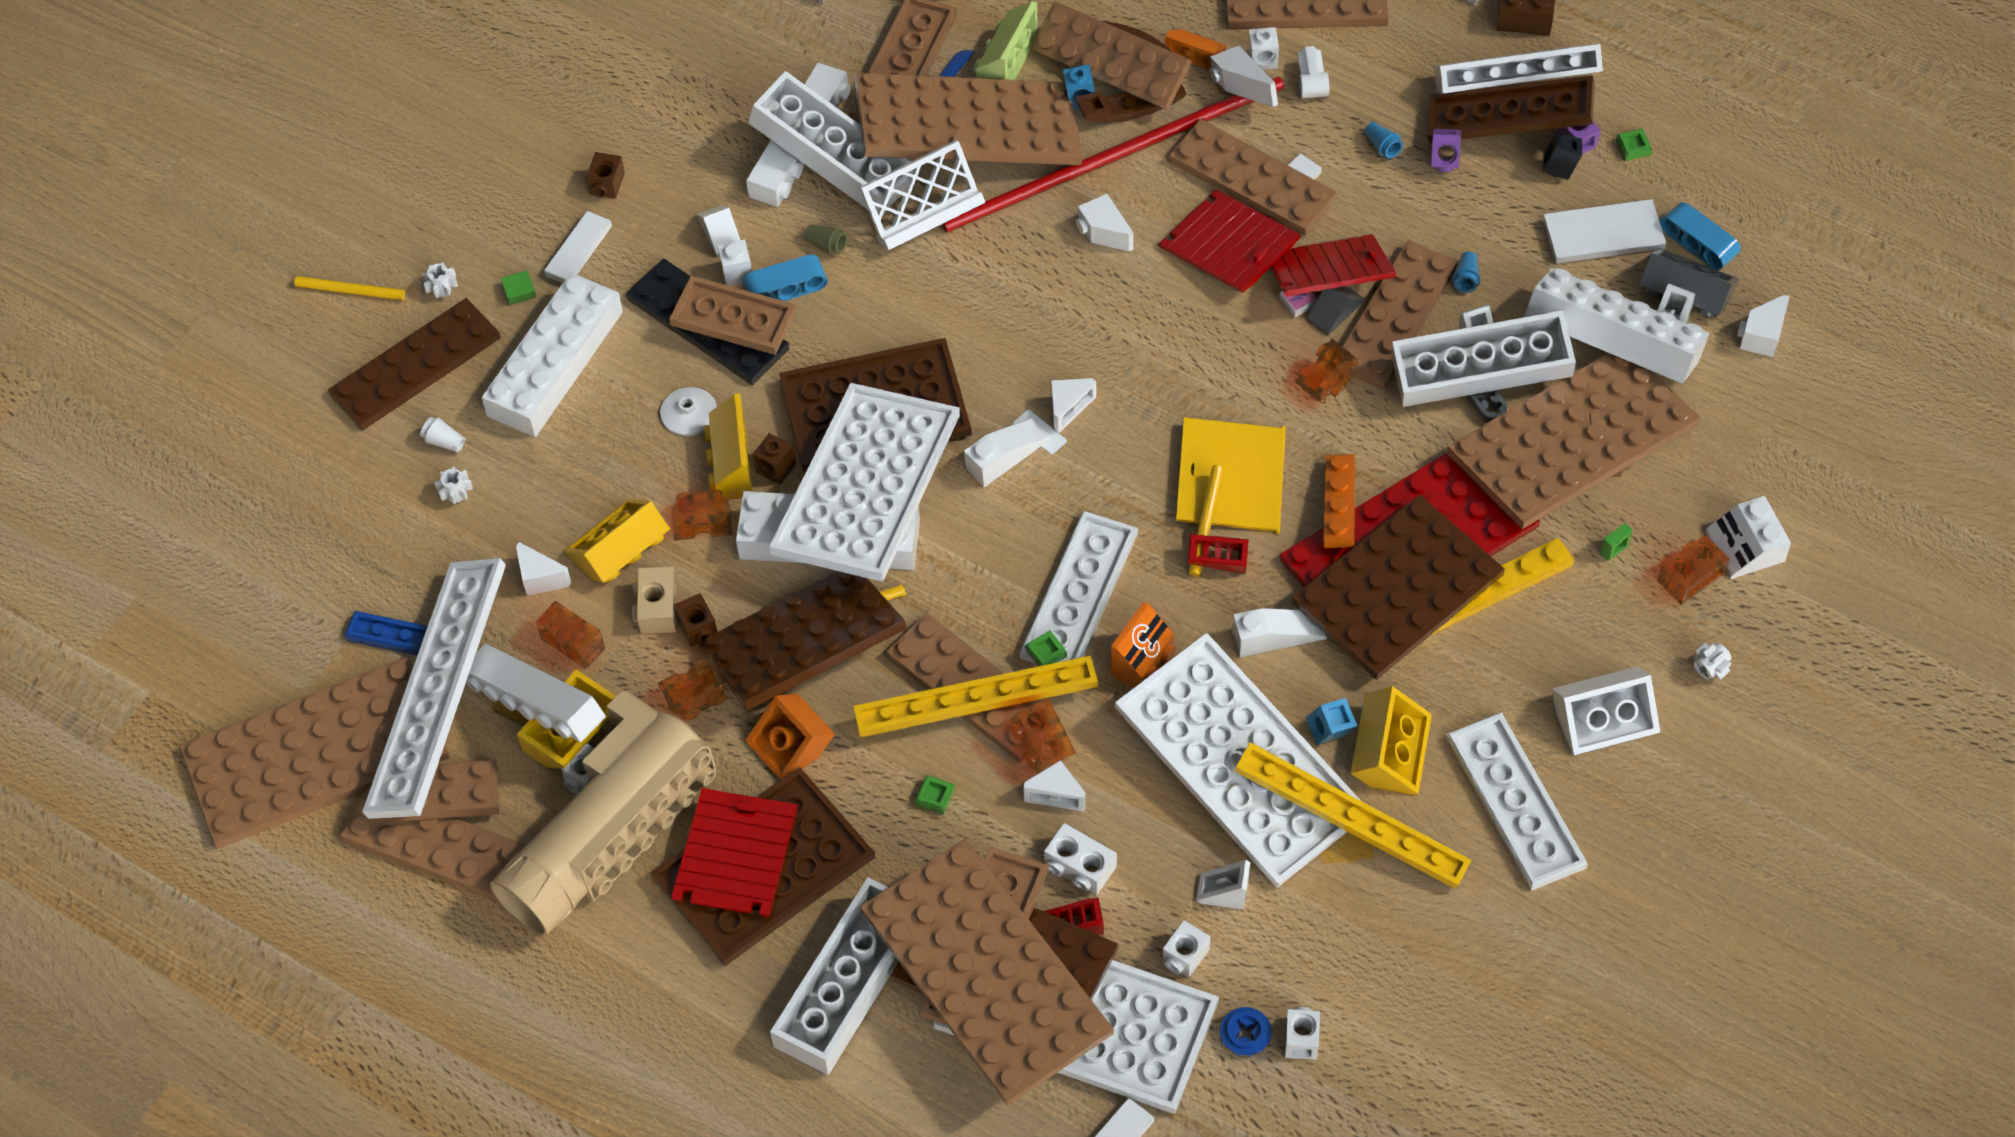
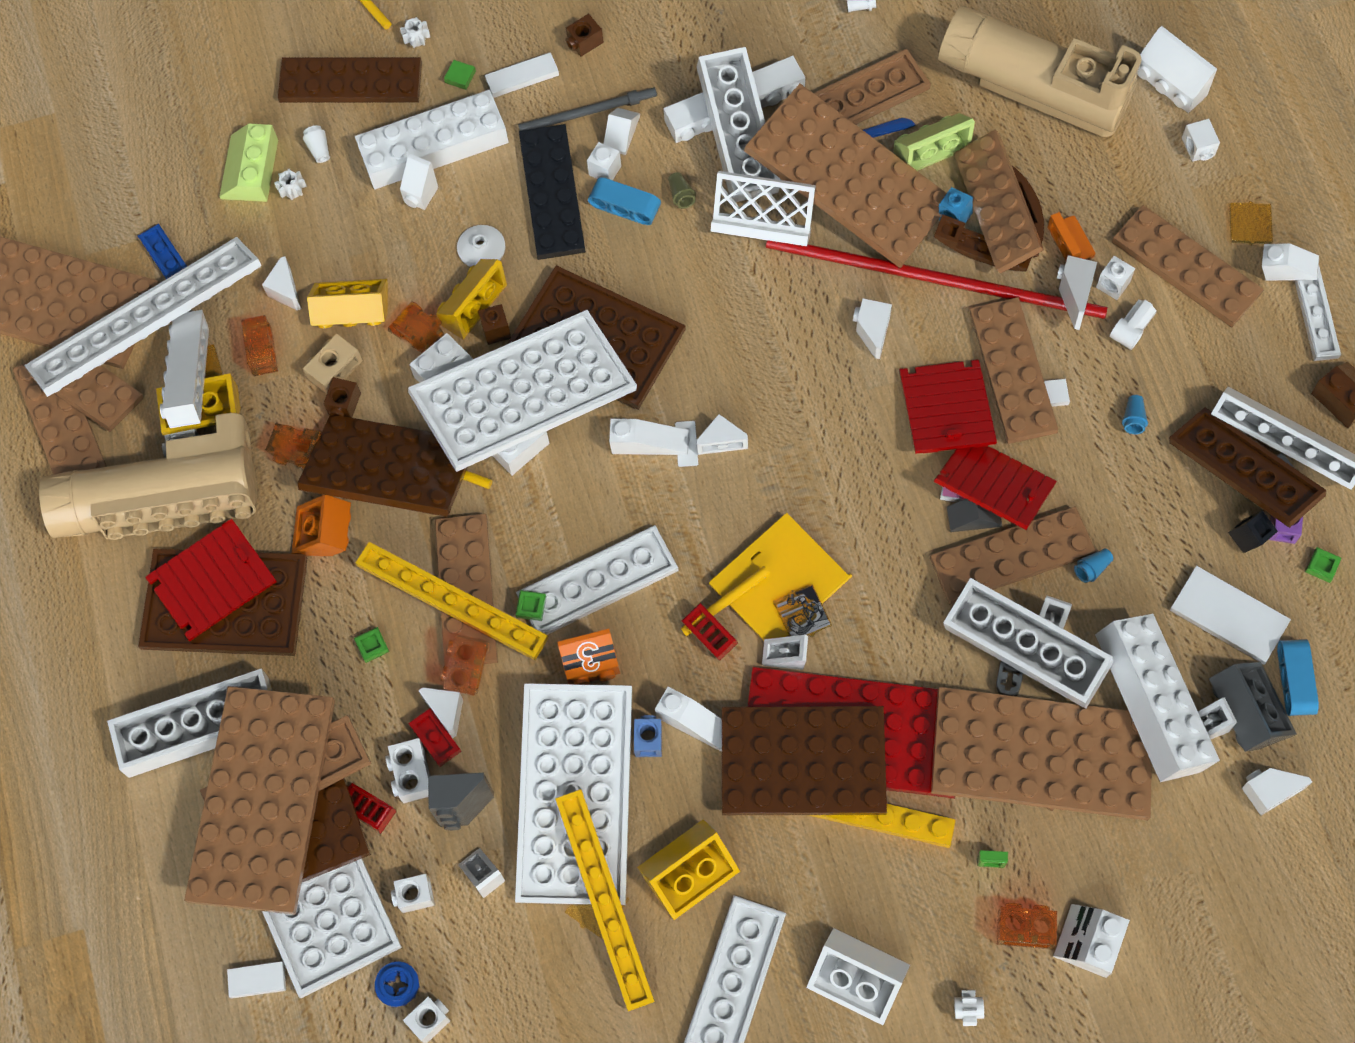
camera: 45 degrees right, 10 degrees up
(391, 497) = (249, 163): none -> yellowish green slope
(581, 394) = (418, 182): none -> white slope
(701, 198) = (632, 98): none -> dark grey bar
(733, 315) = (562, 200): medium nougat plate -> none
(1082, 817) = (435, 737): none -> red plate
(1149, 837) = (458, 798): none -> dark grey slope
(1252, 659) = (651, 747): none -> medium blue brick
(1276, 484) = (802, 612): none -> piece
(1298, 518) = (785, 652): none -> white slope
(1328, 373) = (913, 562): clear orange cylinder -> none
(1331, 721) = (660, 819): dark azure brick -> none
(1339, 501) = (828, 663): orange plate -> none
(1446, 137) = (1179, 454): medium lavender brick -> none

